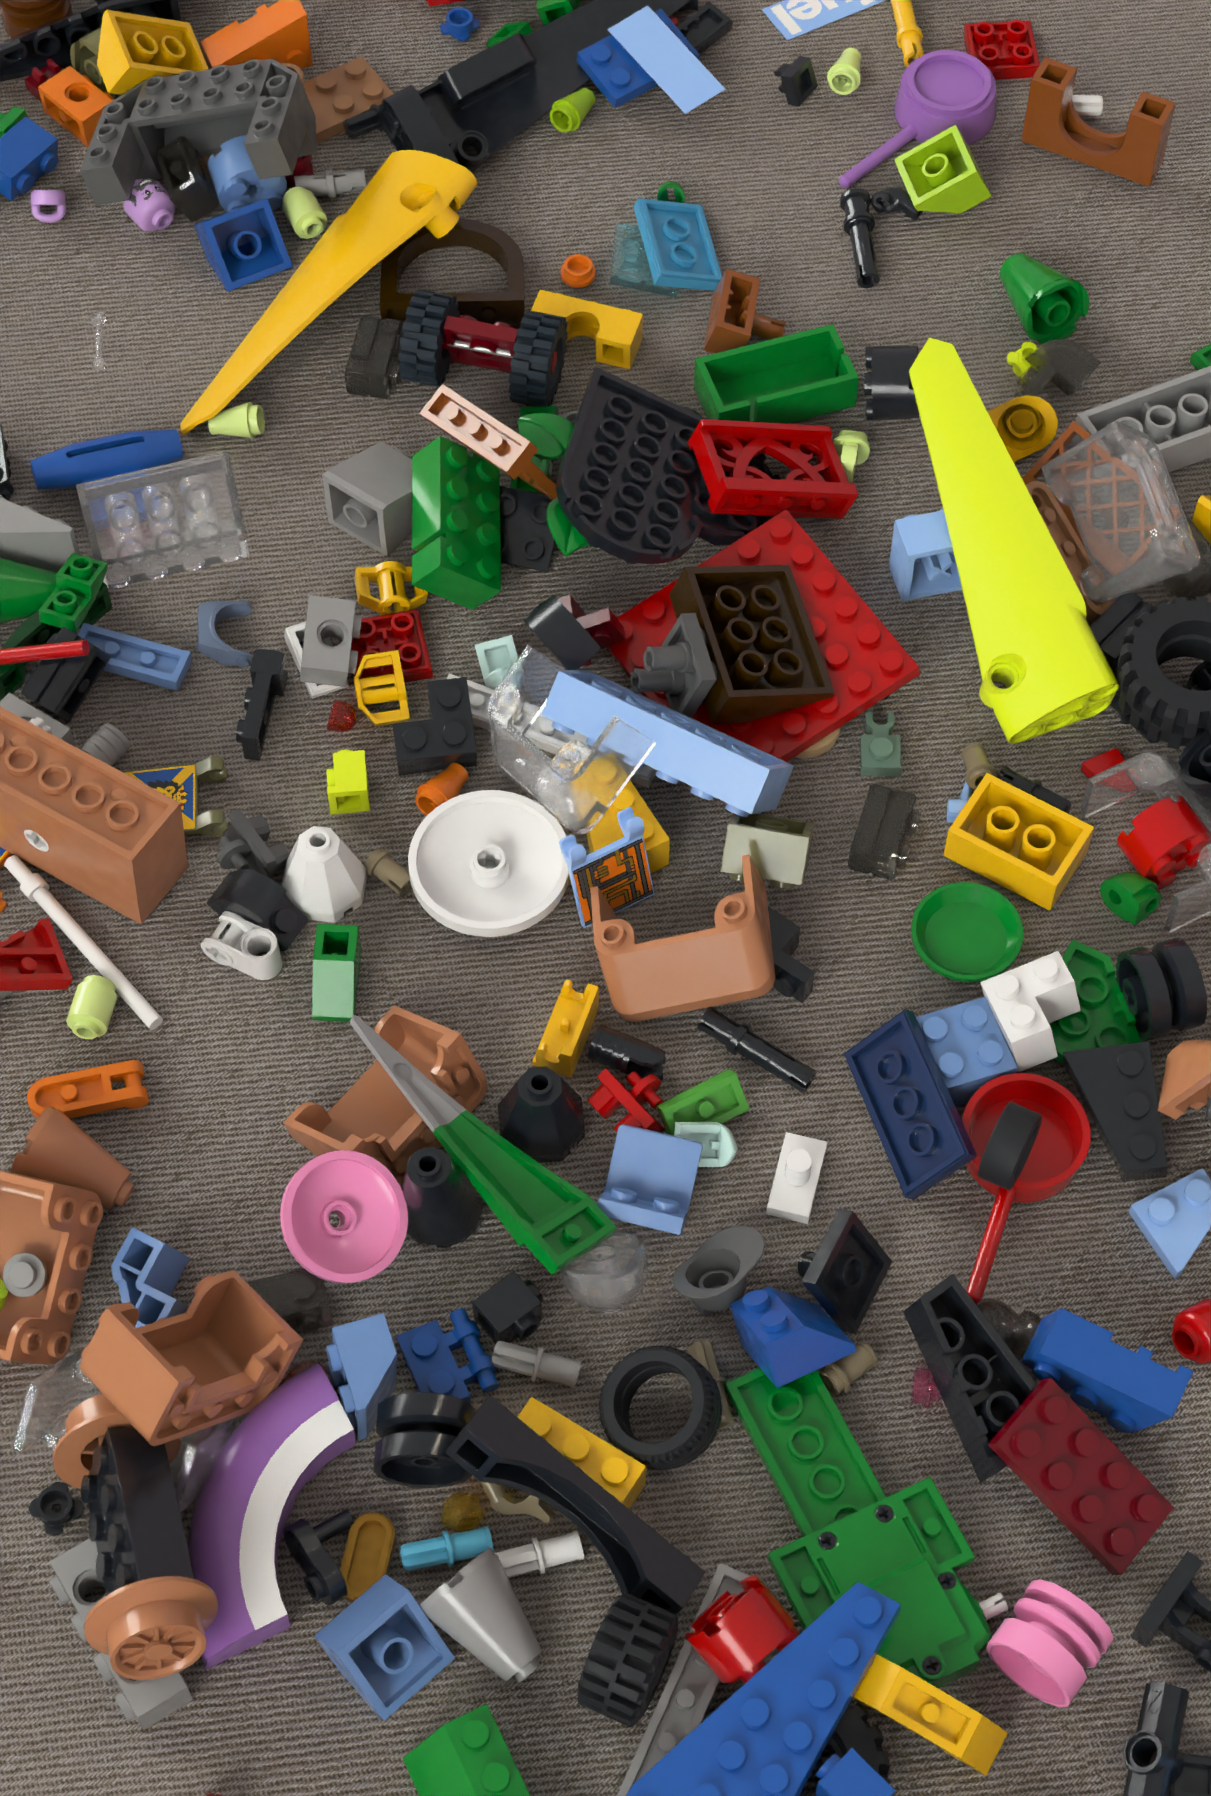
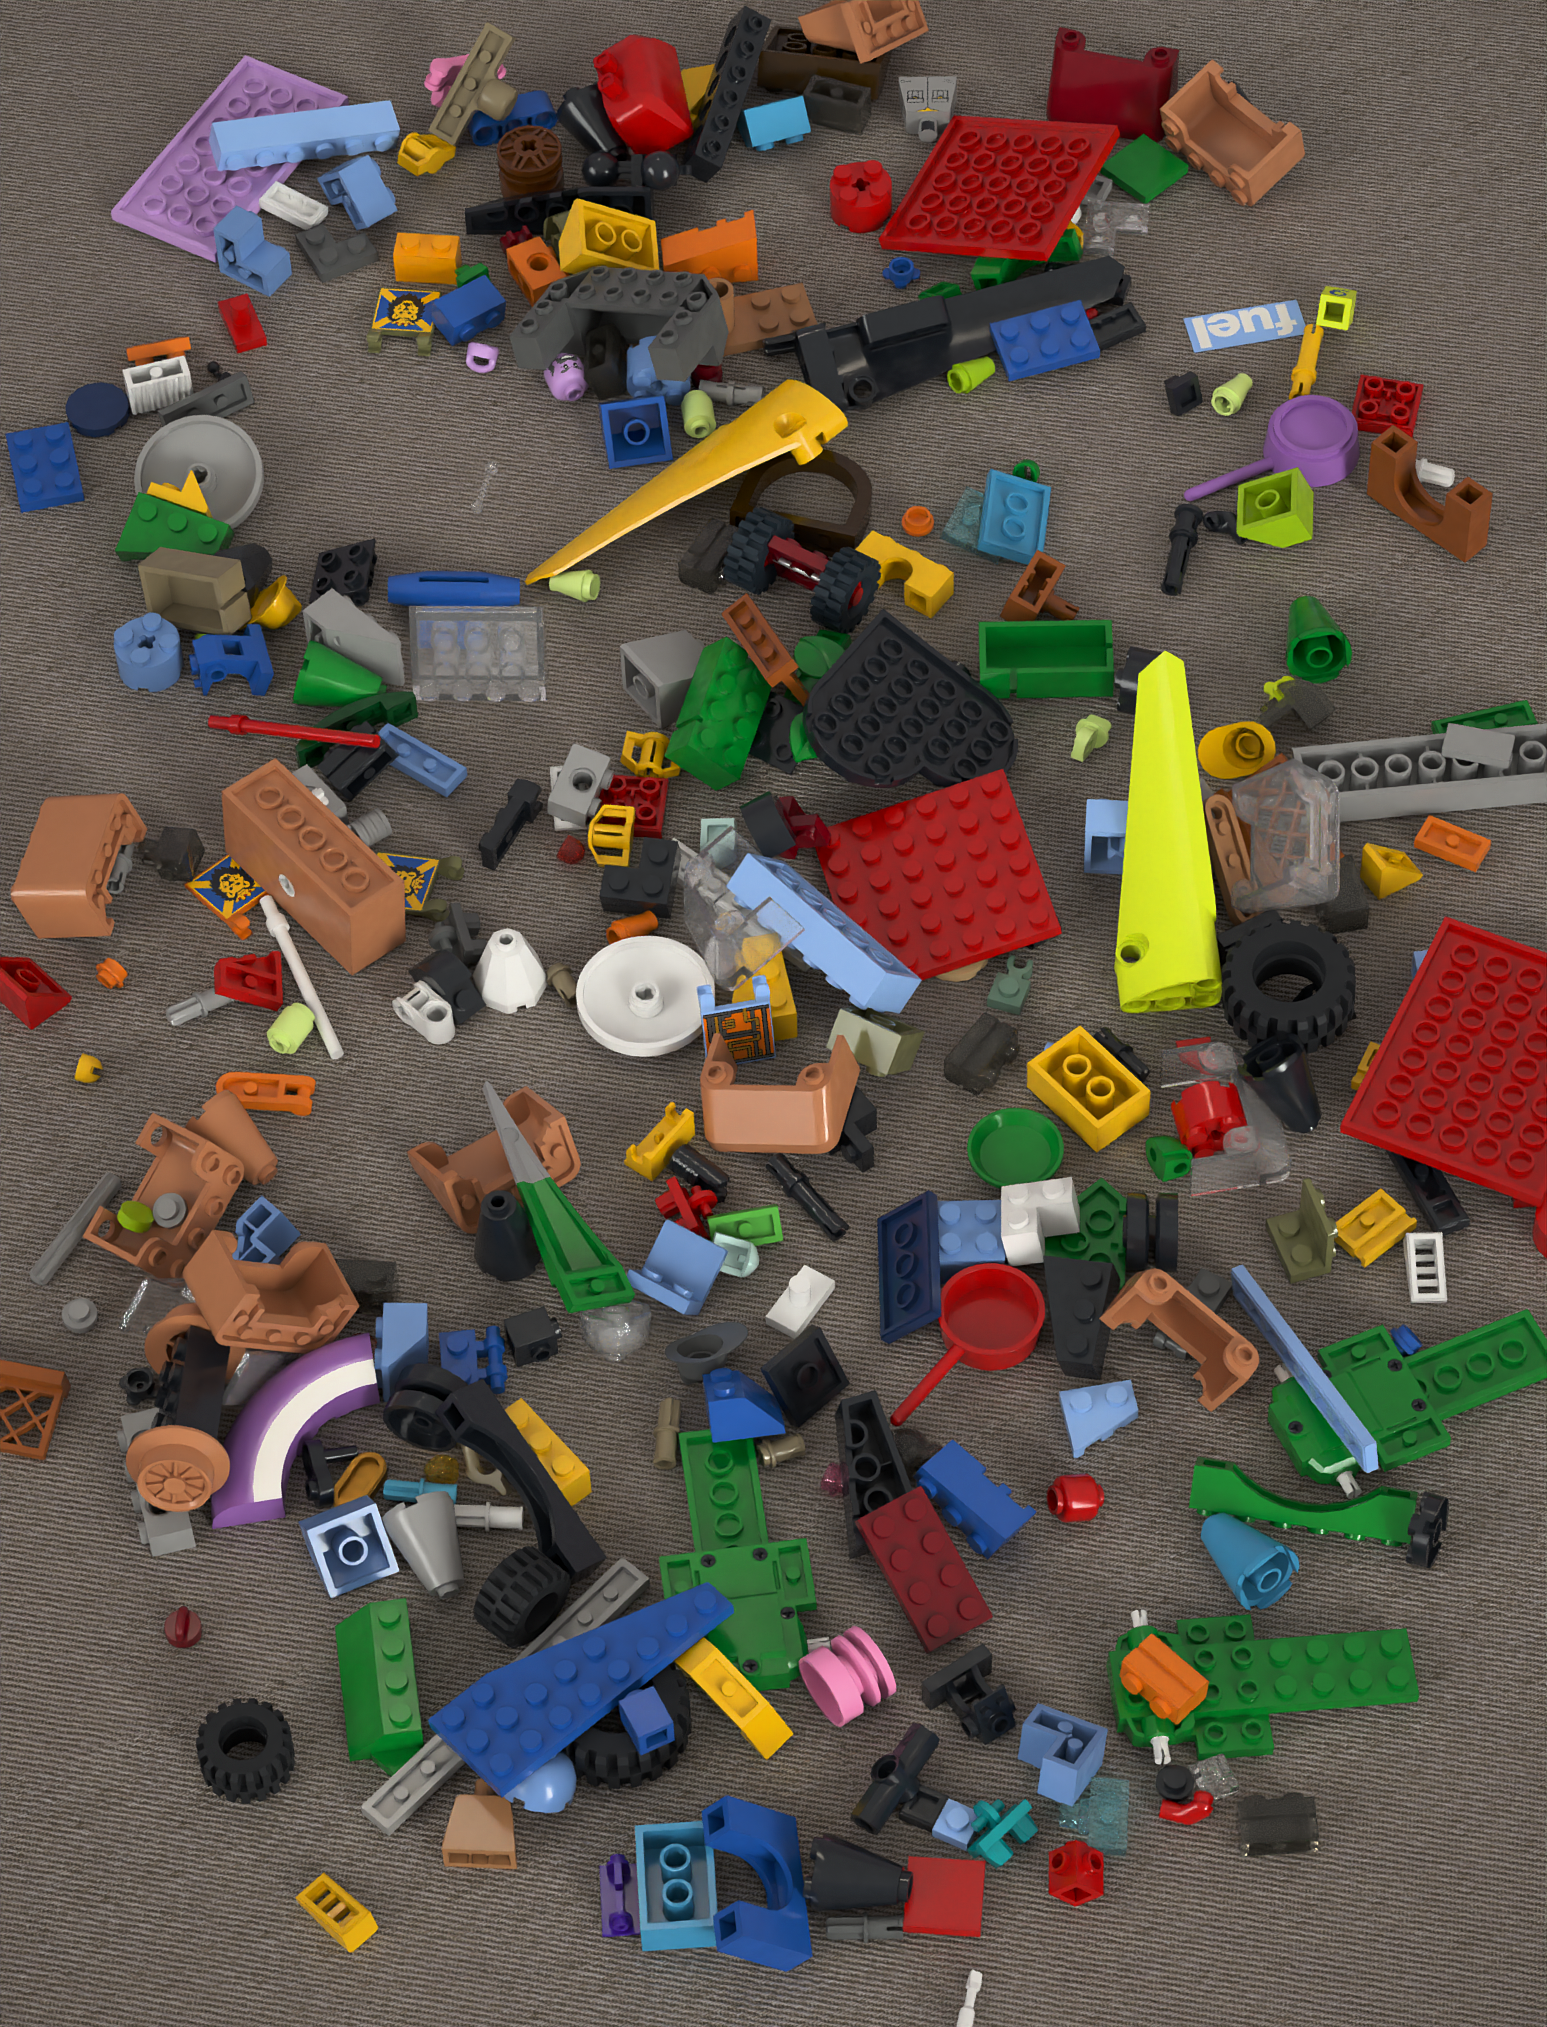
camera: 20 degrees right, 5 degrees down
(74, 592) = (388, 693): green slope -> none
(208, 640) = (492, 742): sand blue helmet -> none
(335, 972) = (491, 1048): slope -> none
(348, 783) = (557, 905): neon yellow brick -> none
(369, 1212) = (447, 1224): bright pink dish -> none
(536, 1363) = (539, 1381): light grey axle -> none
(542, 1116) = (613, 1200): black cone -> none
(623, 1384) = (598, 1412): black tyre -> none
(666, 59) = (1066, 348): light blue sticker -> none
(678, 667) = (853, 875): dark grey plate -> none
(741, 1631) = (612, 1595): red brick -> none
(753, 491) = (1030, 713): red fence -> none
(755, 639) = (925, 869): dark brown slope -> none
(976, 764) = (1085, 1018): dark tan pin -> none
(1009, 1145) = (962, 1310): black tyre -> none

